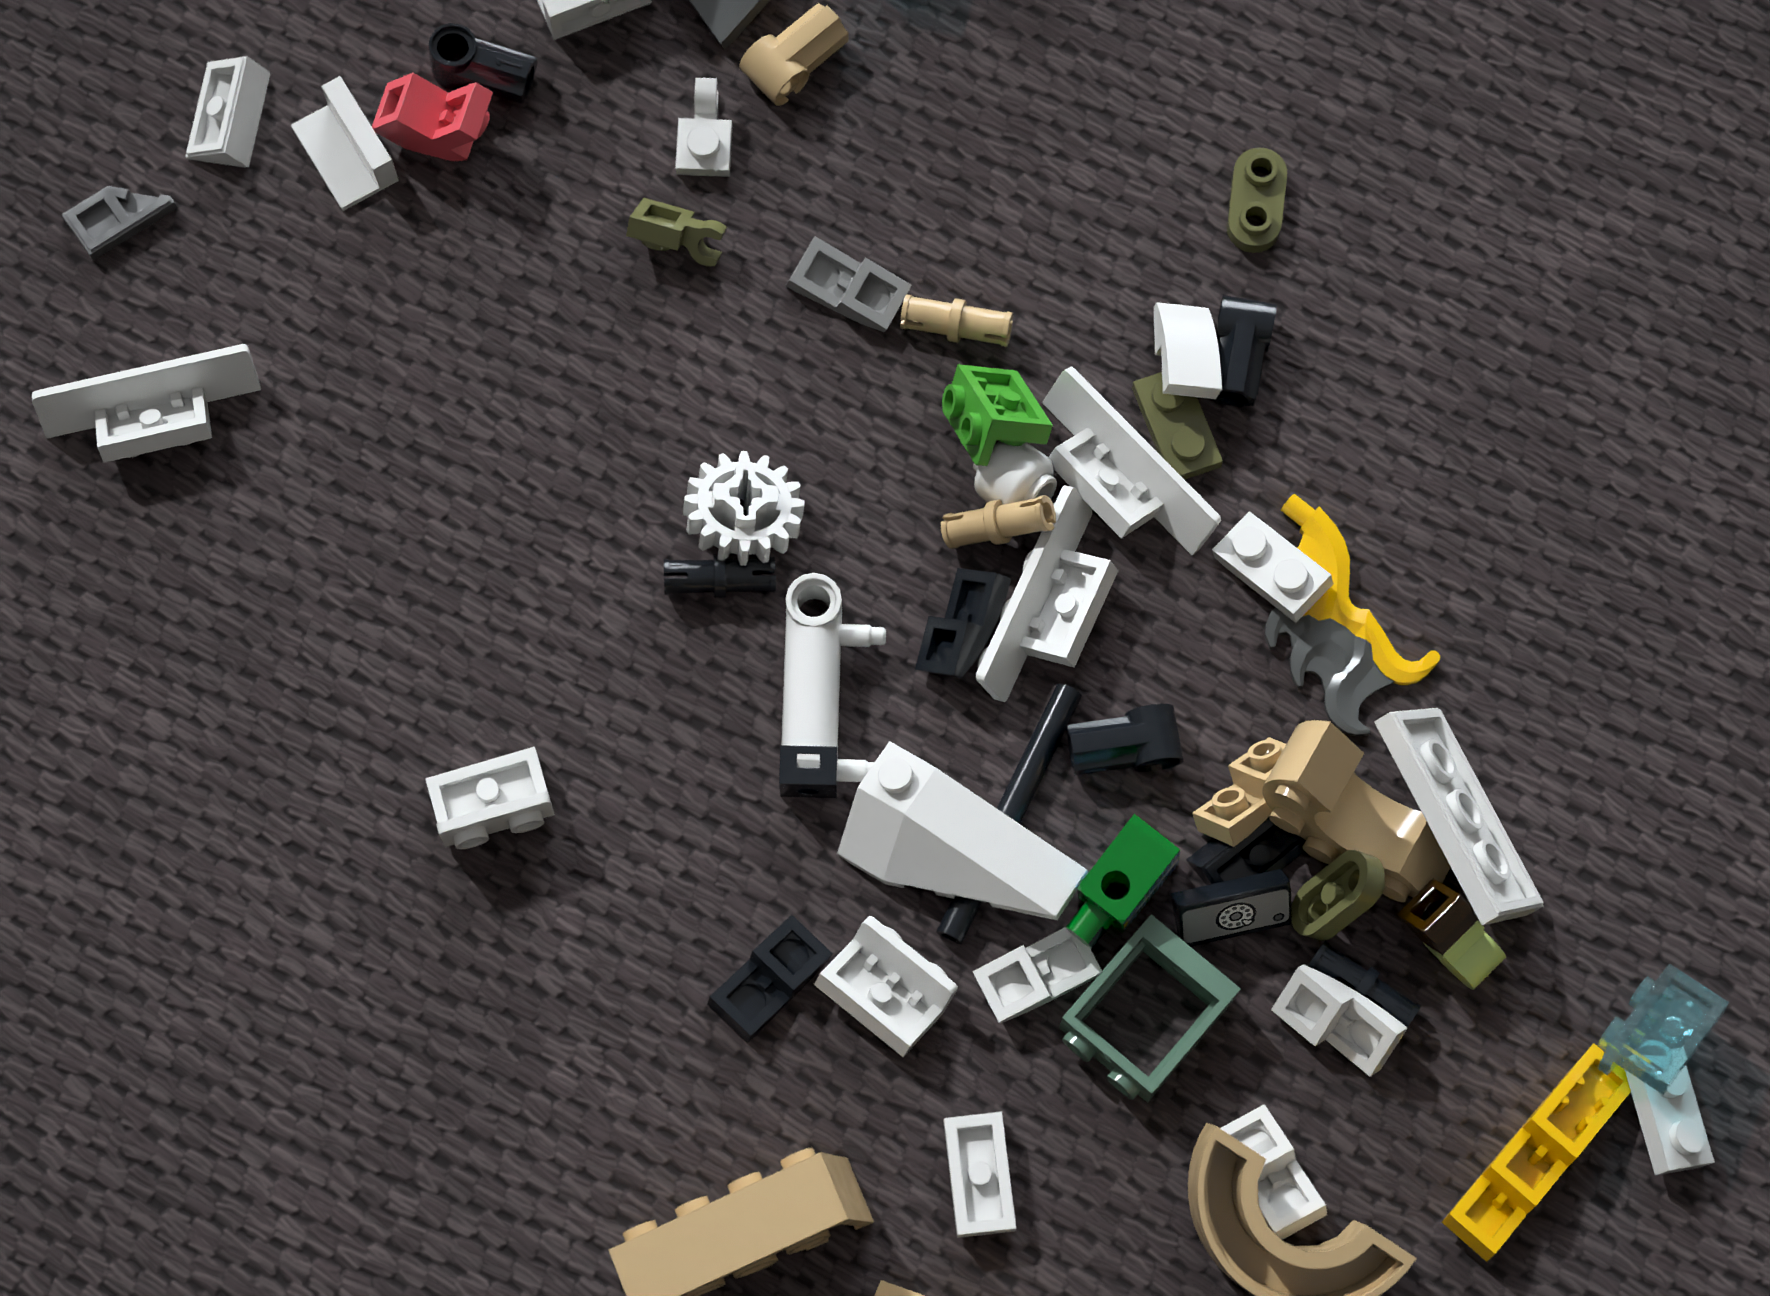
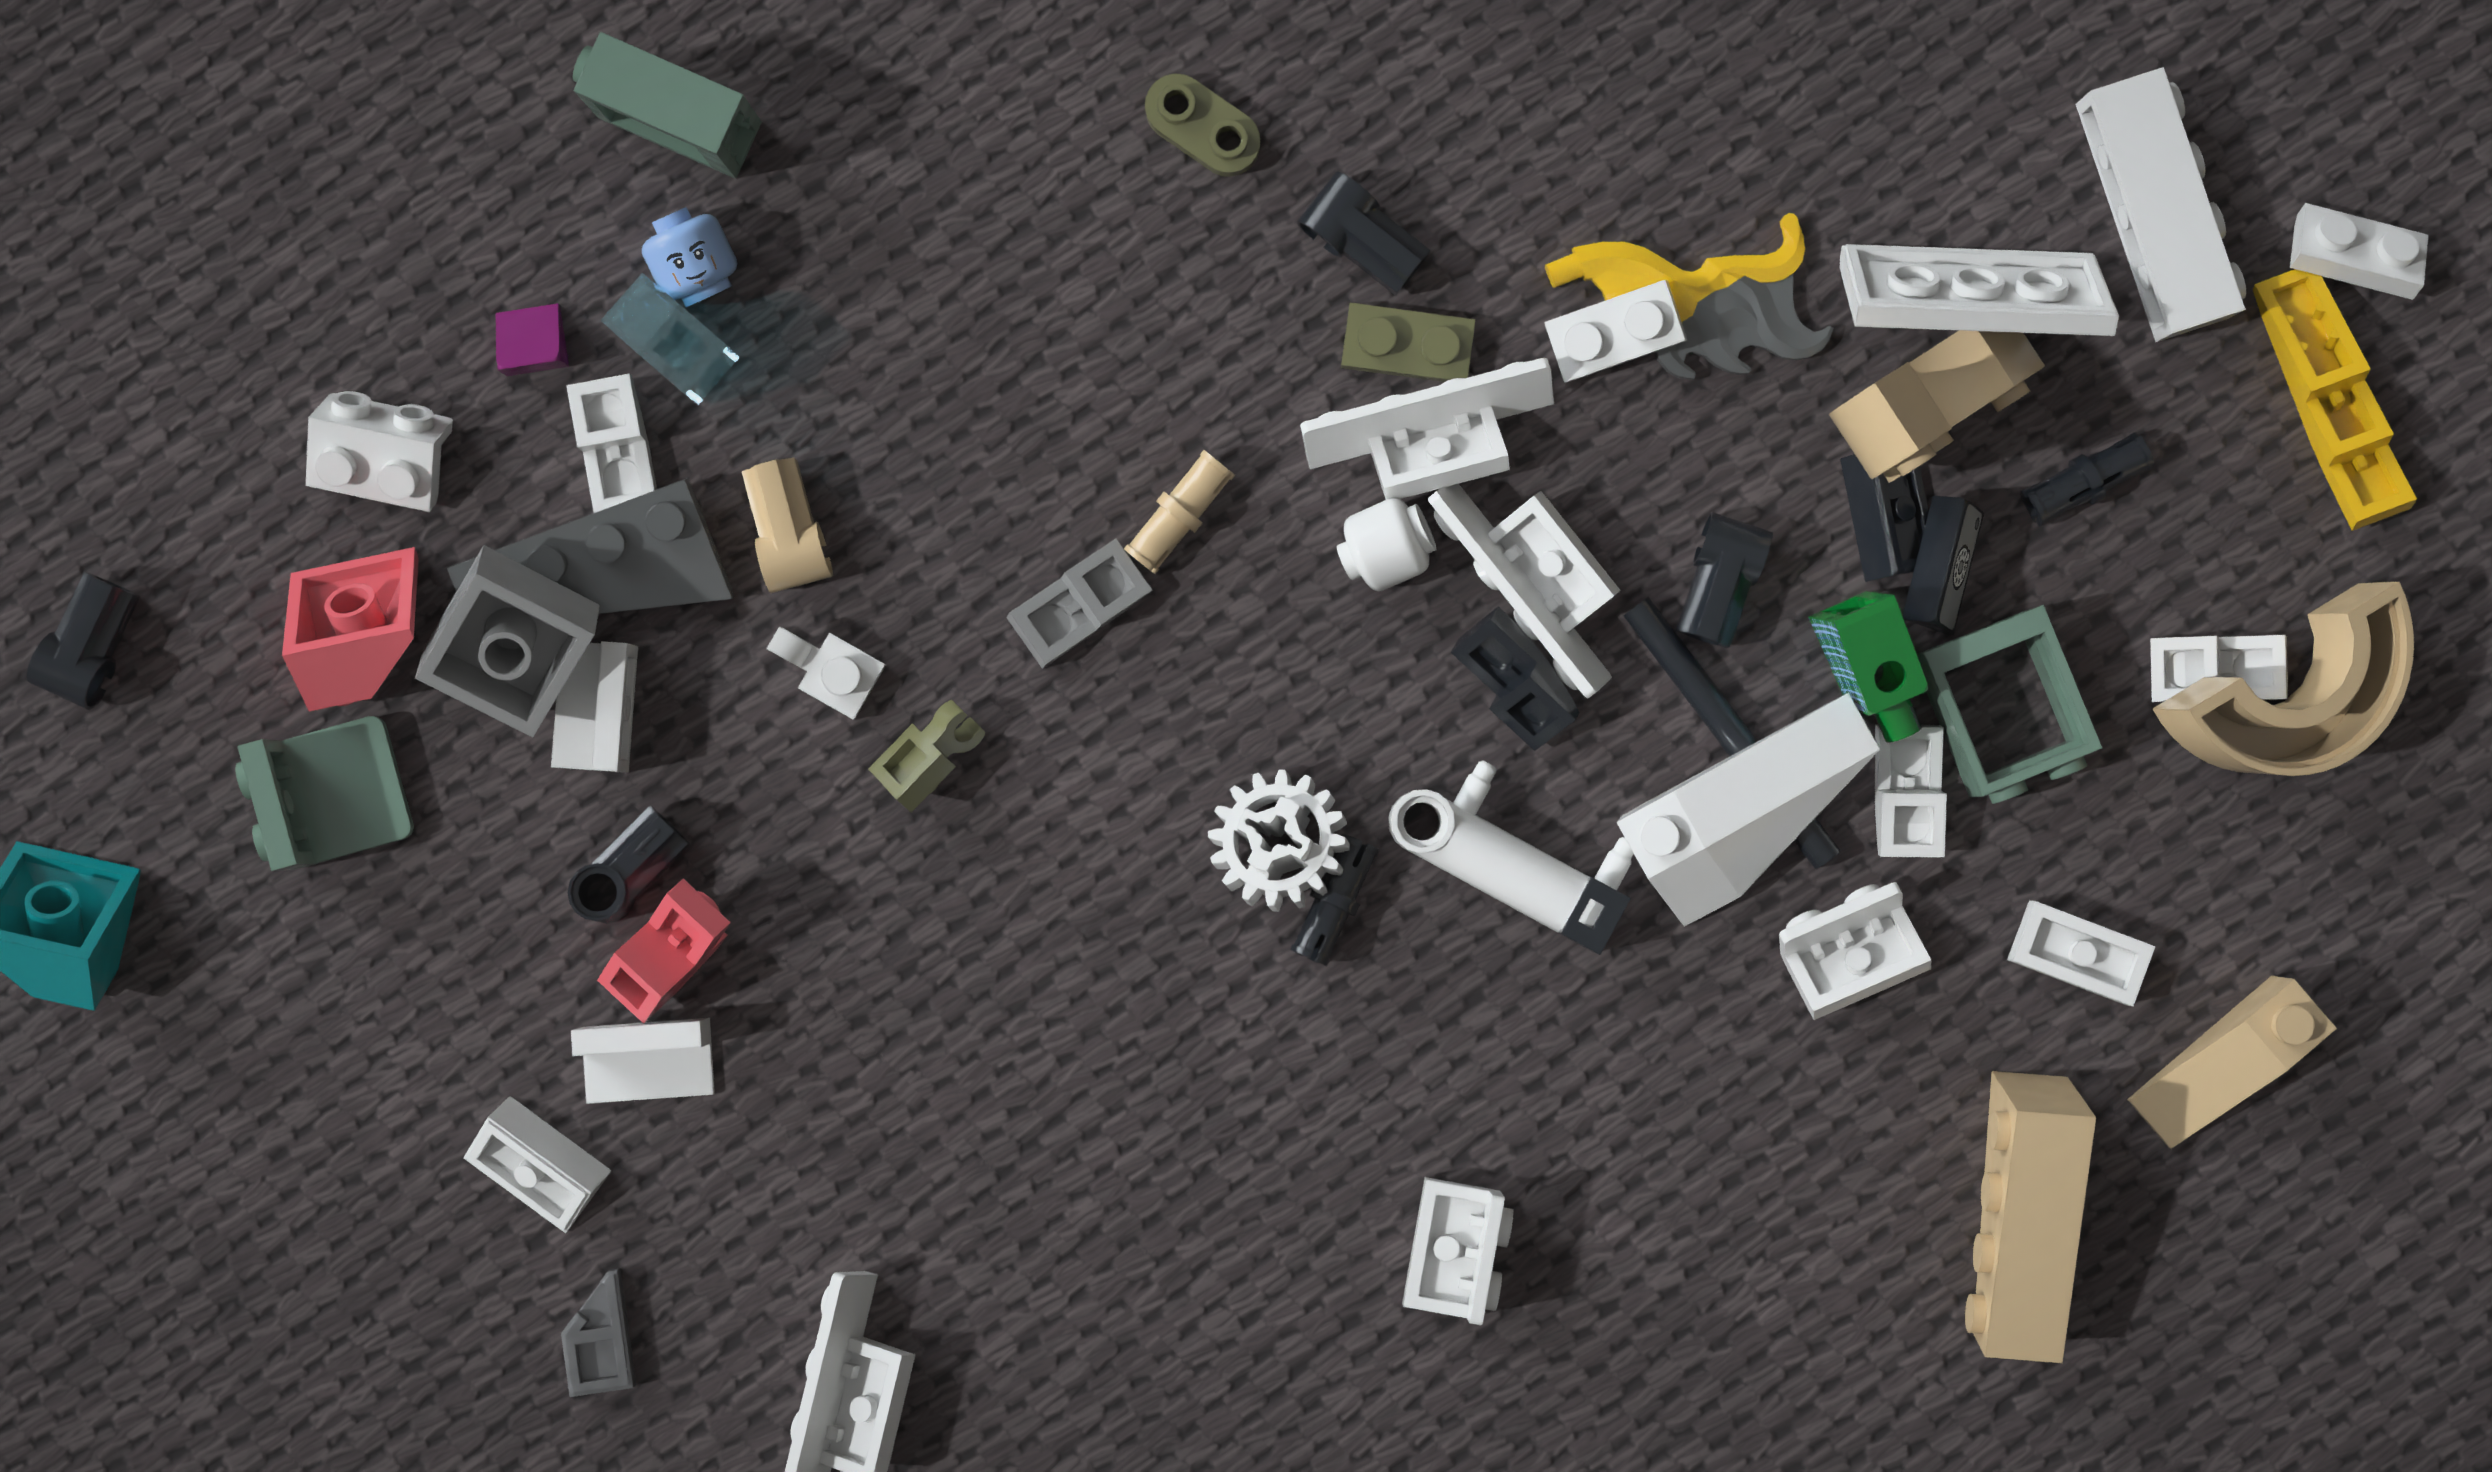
camera: 60 degrees left, 15 degrees up
(769, 978) = (1779, 1058): black slope -> none
(993, 406) = (1310, 529): bright green bracket -> none
(998, 522) = (1431, 587): tan pin -> none
(1188, 350) = (1341, 289): white slope -> none
(1241, 807) = (1847, 498): tan slope -> none
(1333, 1012) = (2124, 508): white slope -> none
(1338, 895) = (1995, 443): olive plate -> none
(1453, 934) = (2092, 363): leg -> none
(1611, 931) = (2161, 204): none -> white brick
(1663, 1030) = (2289, 214): clear light blue bracket -> none

